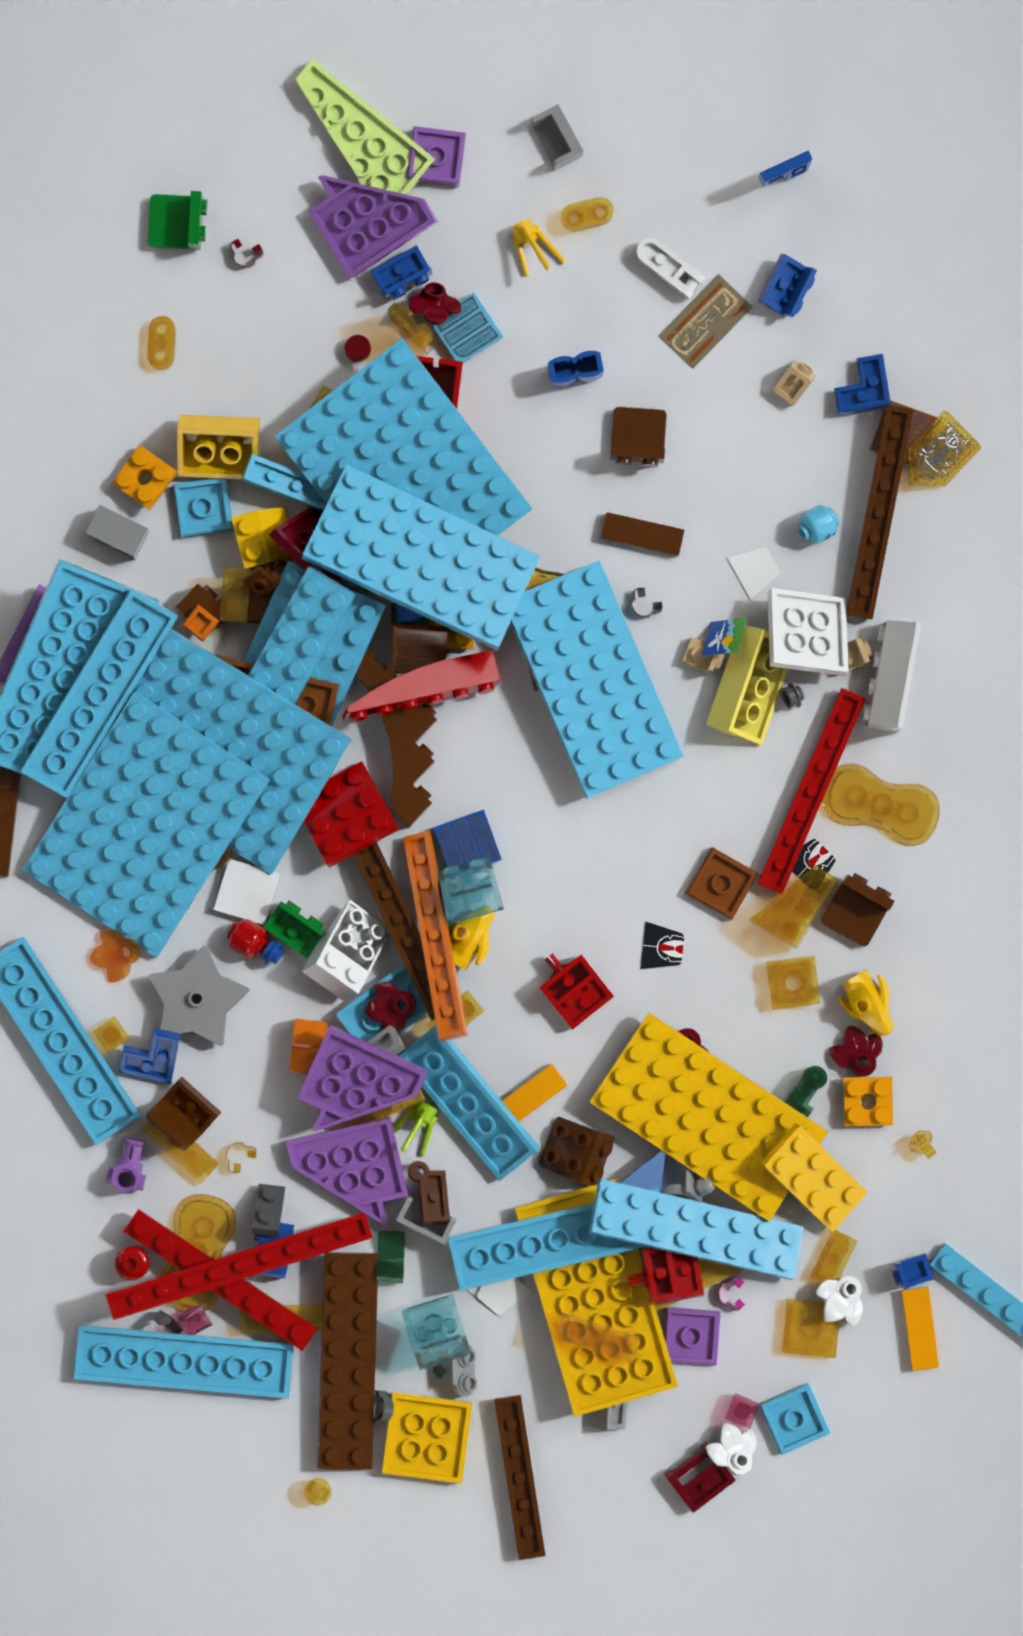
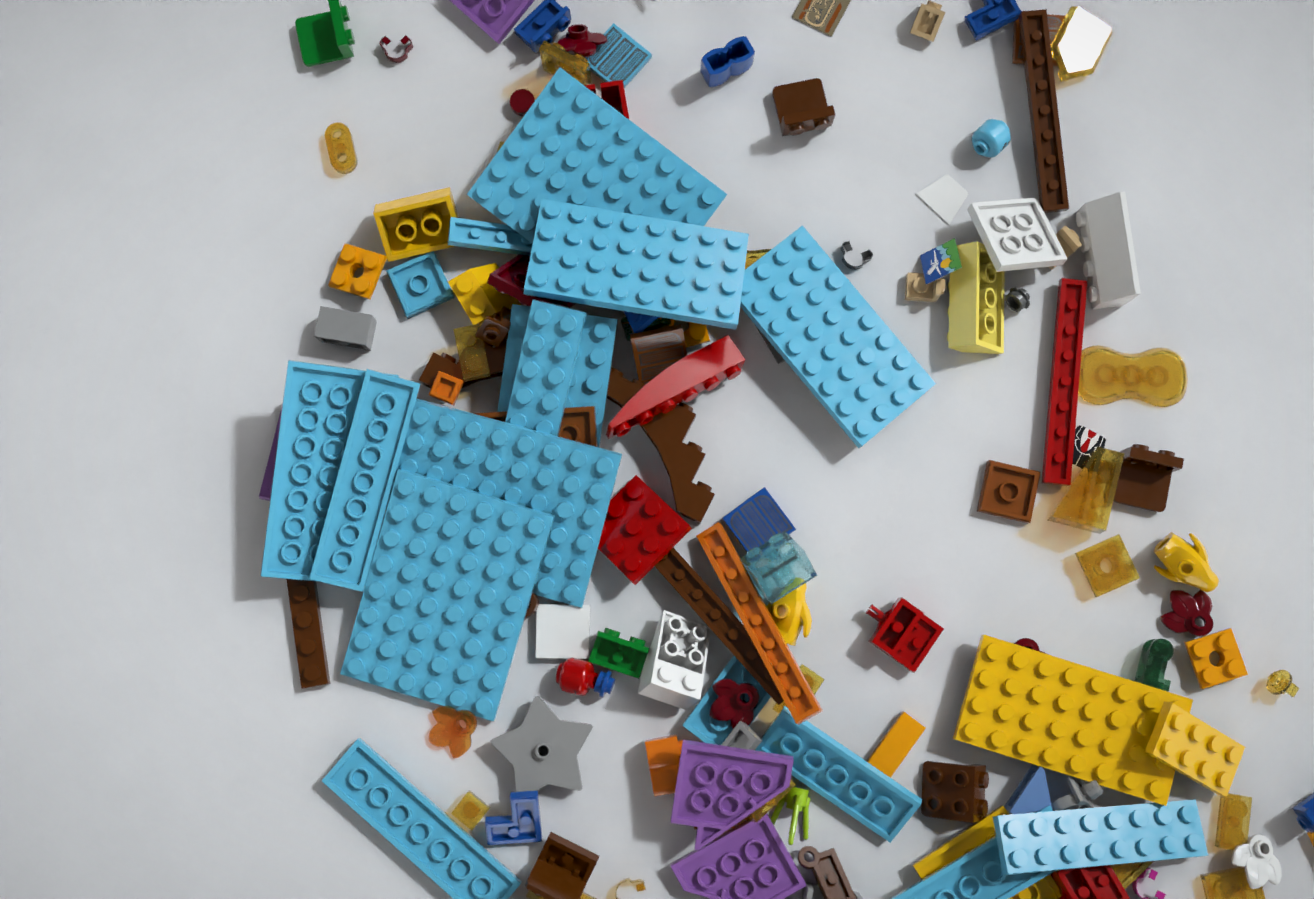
camera: 15 degrees left, 5 degrees down
(642, 534) = (833, 193): reddish brown tile -> none
(661, 947) = (970, 568): black sticker -> none

